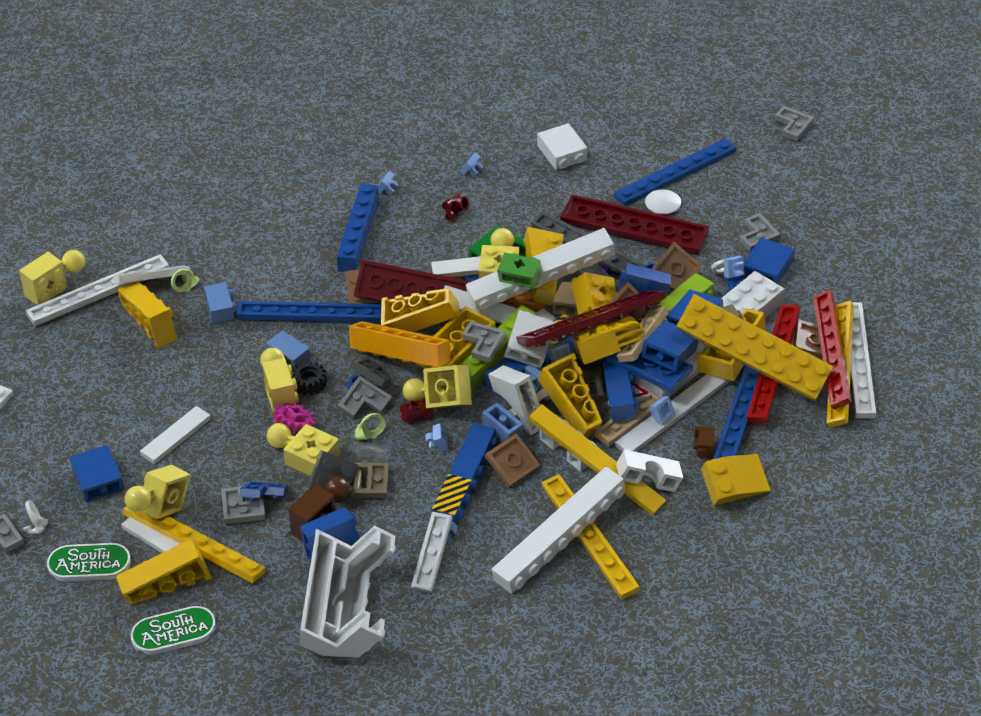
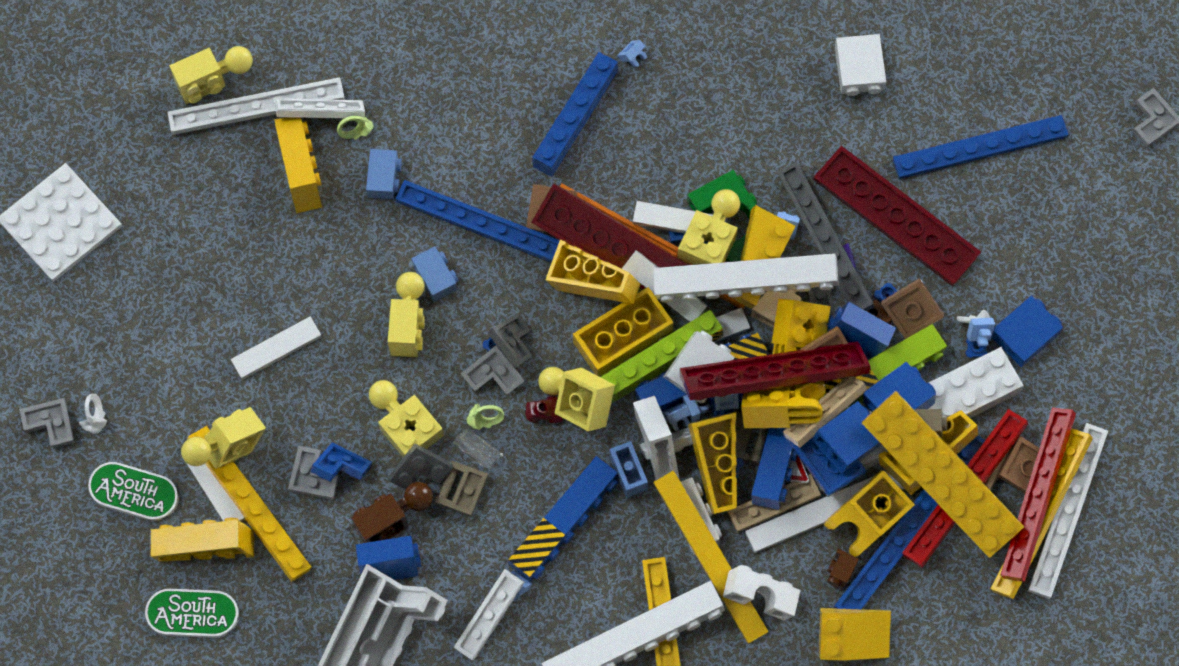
camera: 20 degrees right, 25 degrees up
(96, 473) = (175, 375): blue brick -> none
(293, 416) = (407, 375): dark pink gear -> none
(310, 369) = (444, 307): black tyre -> none
(400, 344) = (553, 320): light orange brick -> none
(437, 438) = (554, 458): light blue tile -> none
(454, 205) = (699, 114): dark red plate -> none
(471, 165) = (742, 54): light blue tile -> none
(487, 340) = (651, 354): light grey plate -> none
(512, 460) = (621, 520): medium nougat plate -> none
(519, 270) = (725, 289): bright green brick -> none
(662, 409) = (812, 510): light blue tile -> none
(663, 202) = (945, 190): white dish -> none
(709, 393) = (863, 513): none -> yellow brick
(759, 229) = (1041, 282): light grey plate -> none

